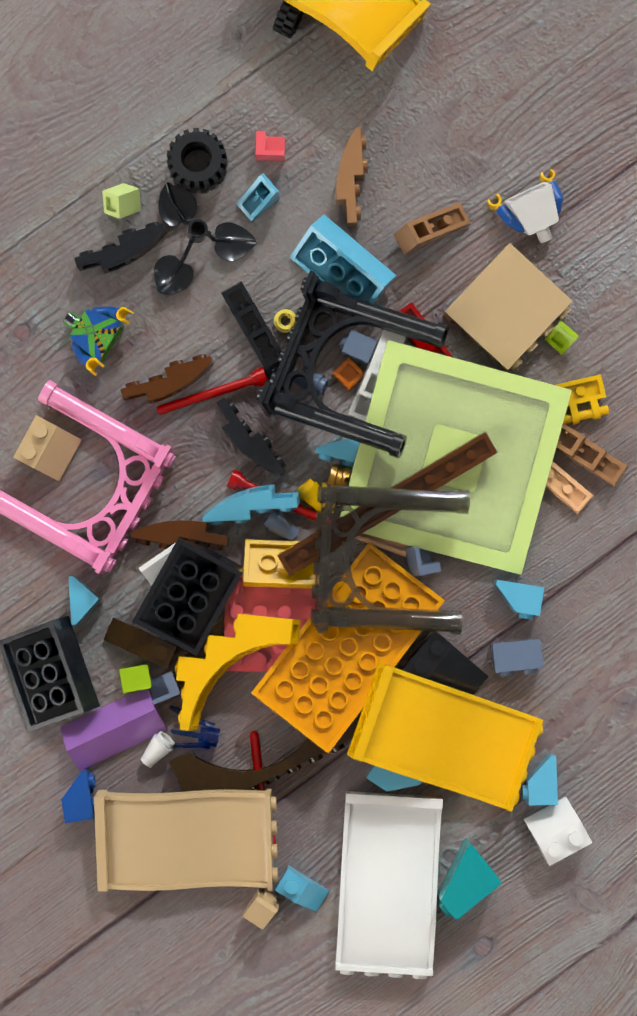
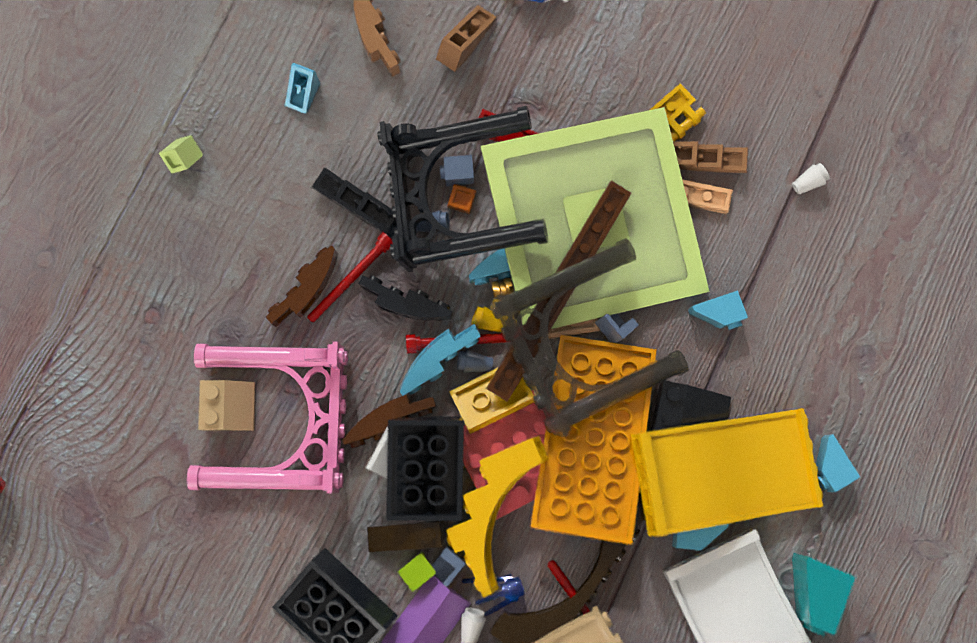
camera: 25 degrees left, 5 degrees down
(81, 600) = (330, 527): medium azure slope -> none
(96, 333) = (218, 280): torso -> none
(131, 248) = (211, 189): black slope -> none
(178, 206) = (235, 133): black plant -> none
(197, 141) = (221, 69): black tyre -> none
(269, 147) = (288, 44): coral panel -> none
(285, 313) = (376, 177): light yellow plate -> none
(341, 261) = (402, 103): medium azure slope -> none
(362, 399) = (485, 205): white slope -> none
(509, 308) = (570, 68): tan panel -> none
(516, 656) = (747, 364): sand blue brick -> none
(557, 831) = (872, 502): white slope -> none
(561, 337) = (629, 70): lime plate -> none

